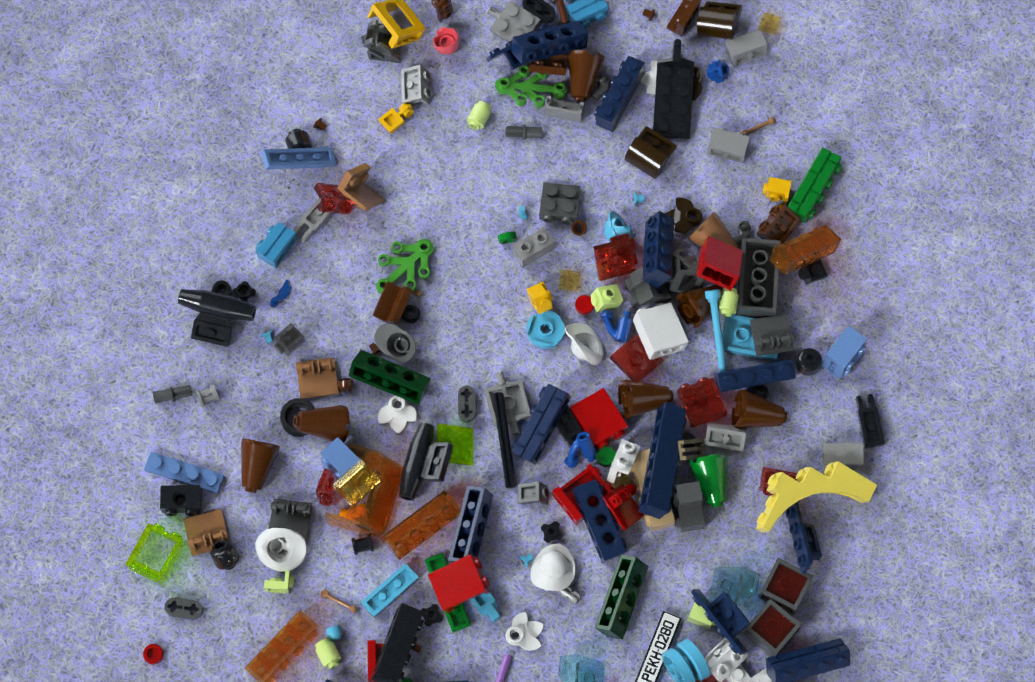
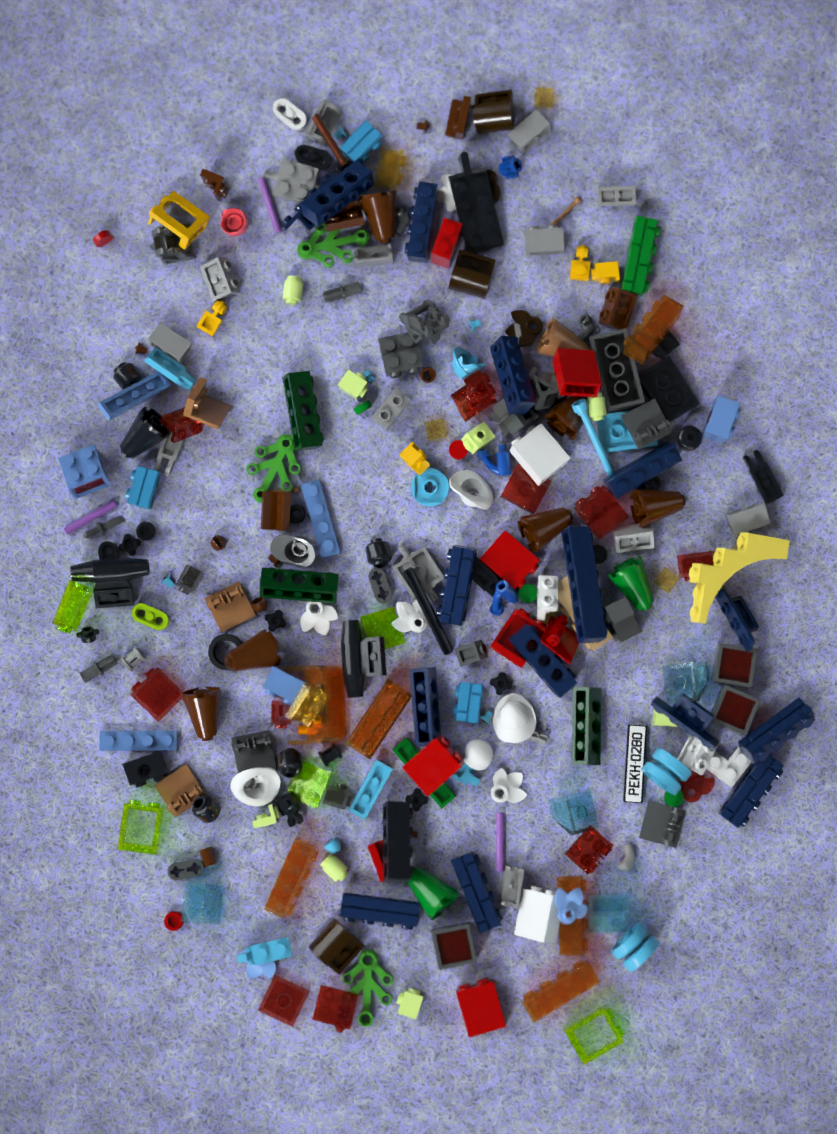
camera: 15 degrees left, 15 degrees up
(169, 326) = (72, 607): none -> clear neon green window
(174, 359) = (88, 634): none -> black plate
(186, 643) = (202, 903): none -> clear light blue slope
(209, 603) = (208, 856): none -> reddish brown hinge
(217, 256) = (90, 517): none -> medium lavender bar
(218, 434) = (157, 693): none -> clear red plate
(225, 269) = (103, 527): none -> dark grey piece
(227, 211) = (84, 471): none -> medium blue piece
(239, 362) = (150, 617): none -> lime plate
(263, 284) = (145, 531): none -> black tile
(282, 294) = (167, 534): blue piece -> none
(294, 195) = (144, 433): none -> black cone
(304, 580) = (288, 806): none -> black plate
(321, 18) = (102, 238): none -> red tile
(321, 538) = (290, 762): none -> black head
(323, 317) = (221, 539): none -> reddish brown hinge
(324, 594) = (311, 811): medium nougat hinge -> none
(332, 566) = (310, 784): none -> clear neon green hinge
(340, 147) = (170, 368): none -> medium azure hinge
(348, 126) = (169, 343): none -> light grey hinge
(355, 586) = (337, 796): none -> clear smoke brick
(360, 403) = (270, 619): none -> black plate
(432, 326) = (320, 518): none -> medium blue plate
(440, 247) = (298, 420): none -> dark green brick
(476, 373) = (378, 553): none -> black head
(483, 438) = (407, 616): none -> white plate
(484, 37) = (269, 204): none -> medium lavender bar
(505, 215) = (354, 384): none -> yellowish green brick
(506, 591) = (478, 754): none -> white hair
(514, 538) = (468, 703): none -> dark azure brick
(591, 186) = (425, 328): none -> dark grey piece
(606, 39) = (389, 168): none -> clear yellow bracket
(635, 115) = (446, 243): none -> red brick
(699, 449) = (613, 559): dark tan tile -> none
(745, 487) = (666, 580): none -> clear yellow tile
(754, 180) = (579, 268): none -> yellow plate
(803, 312) = (668, 388): none -> black plate
(809, 124) = (616, 195): none -> light grey hinge

